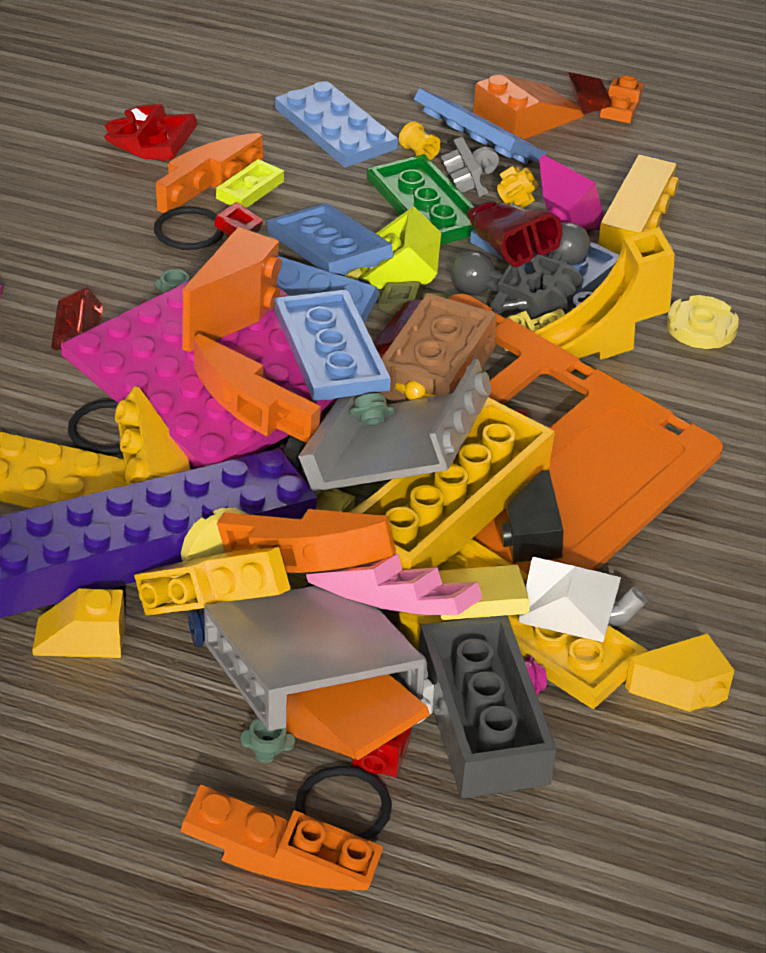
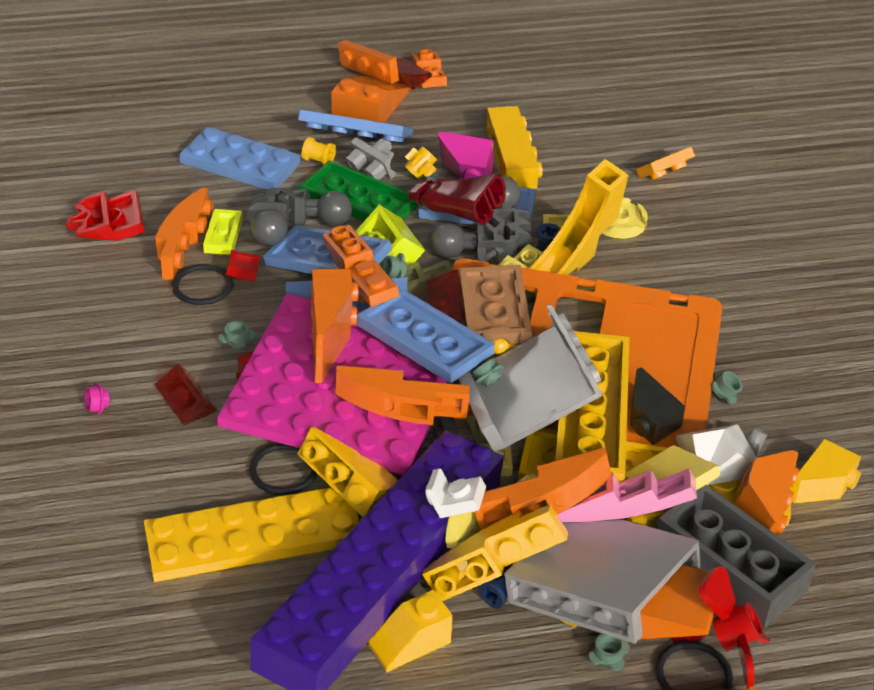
camera: 30 degrees left, 0 degrees up
(199, 502) = (454, 497): none -> white bracket
(325, 253) = (353, 253): none -> orange slope
(331, 179) = (277, 206): none -> dark grey piece
(384, 277) = (395, 266): none -> sand green plate
(402, 765) = (733, 624): none -> red piece
(552, 68) = (368, 61): none -> orange plate
(580, 652) = (766, 490): none -> orange slope
(663, 534) = (727, 386): none -> sand green plate

